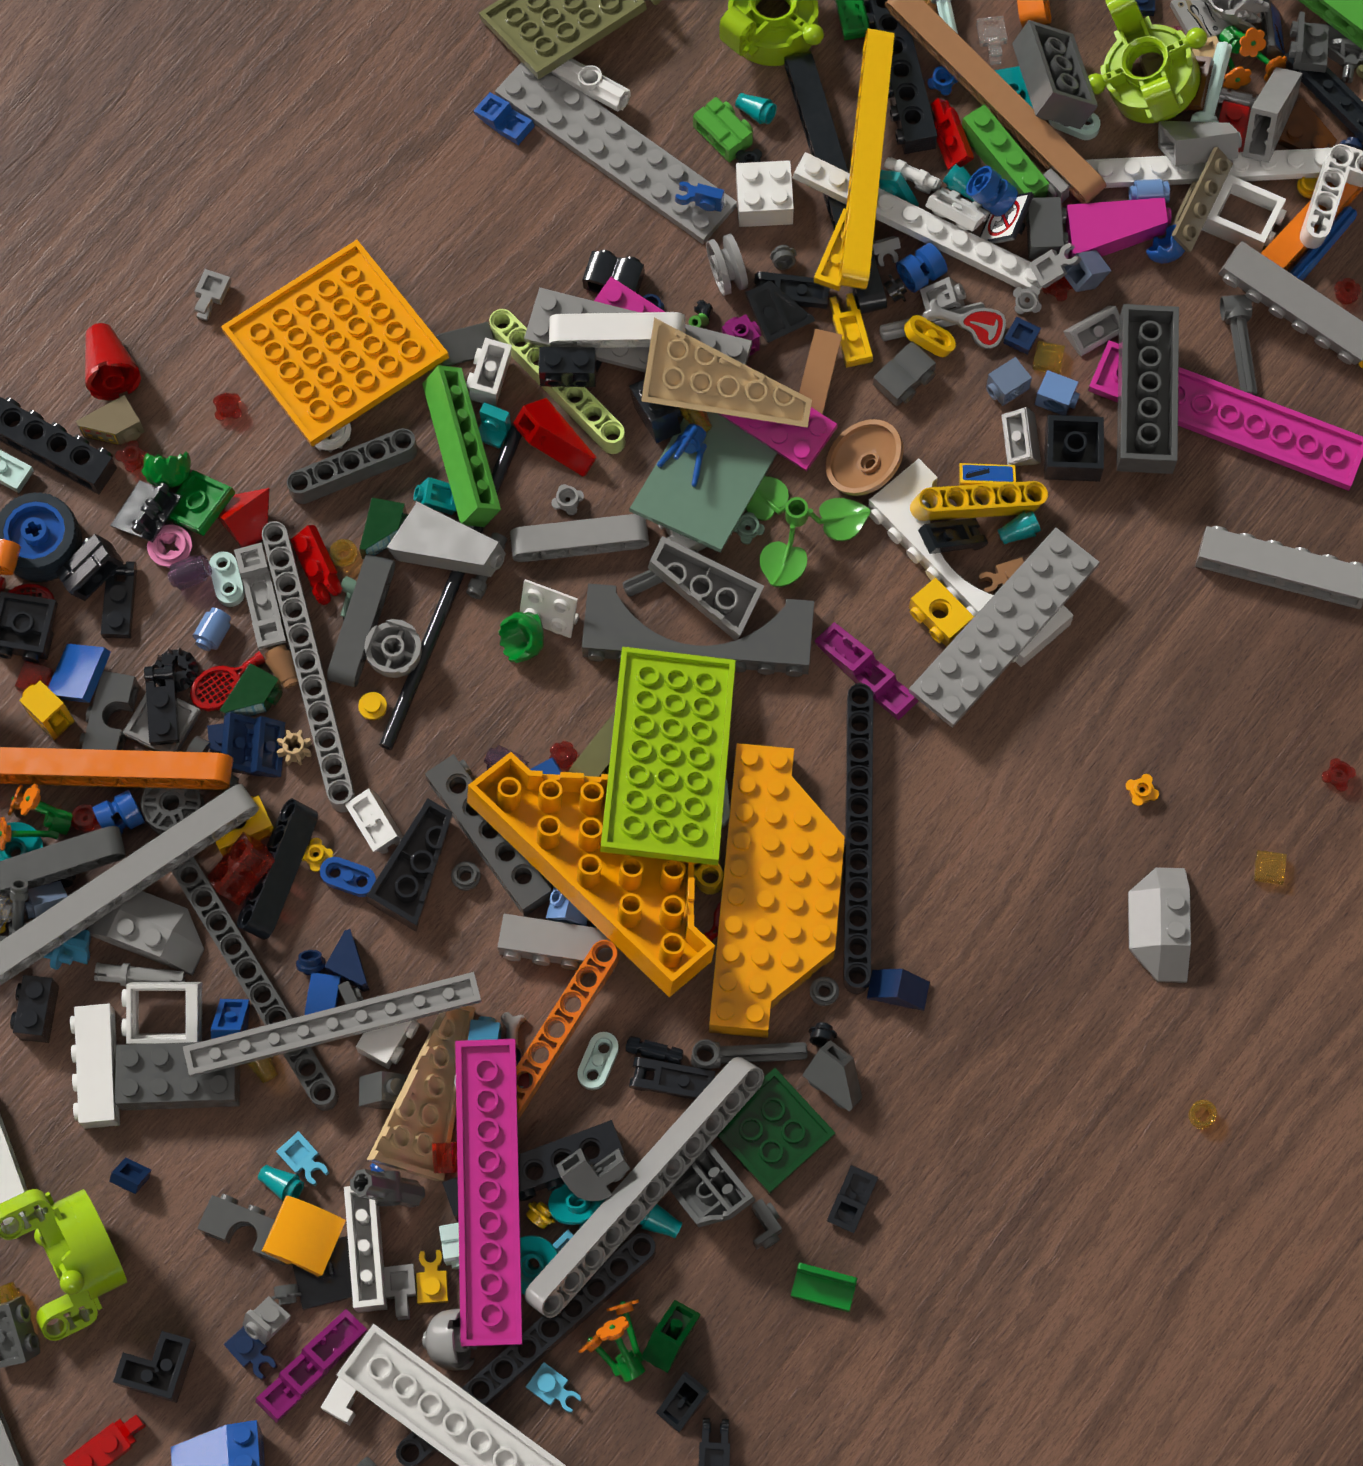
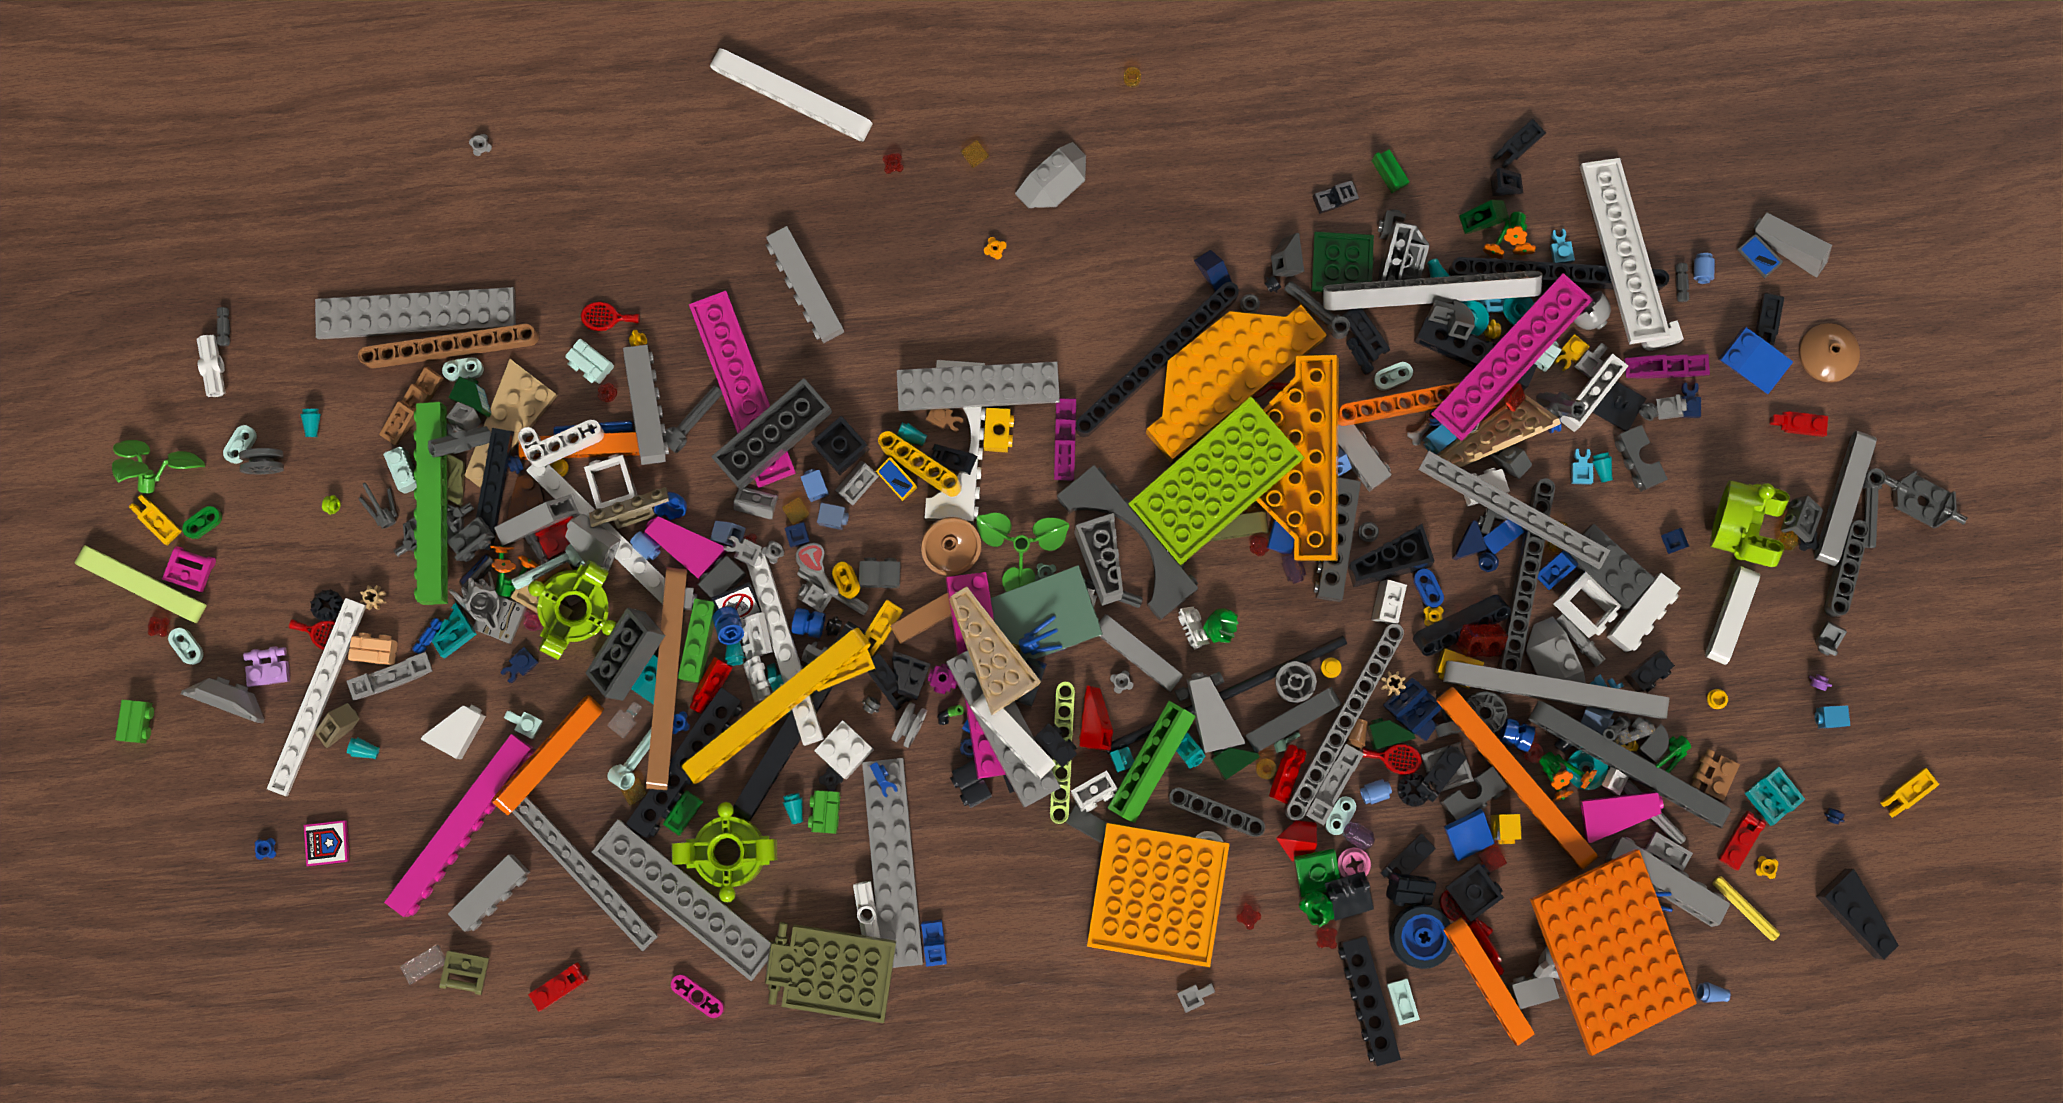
camera: 135 degrees left, 10 degrees up
(108, 364) = (1291, 1007): red cone -> none
(112, 423) = (1319, 966): dark tan slope -> none
(161, 1376) = (1748, 428): black brick -> none
(303, 1235) = (1620, 423): light orange slope -> none

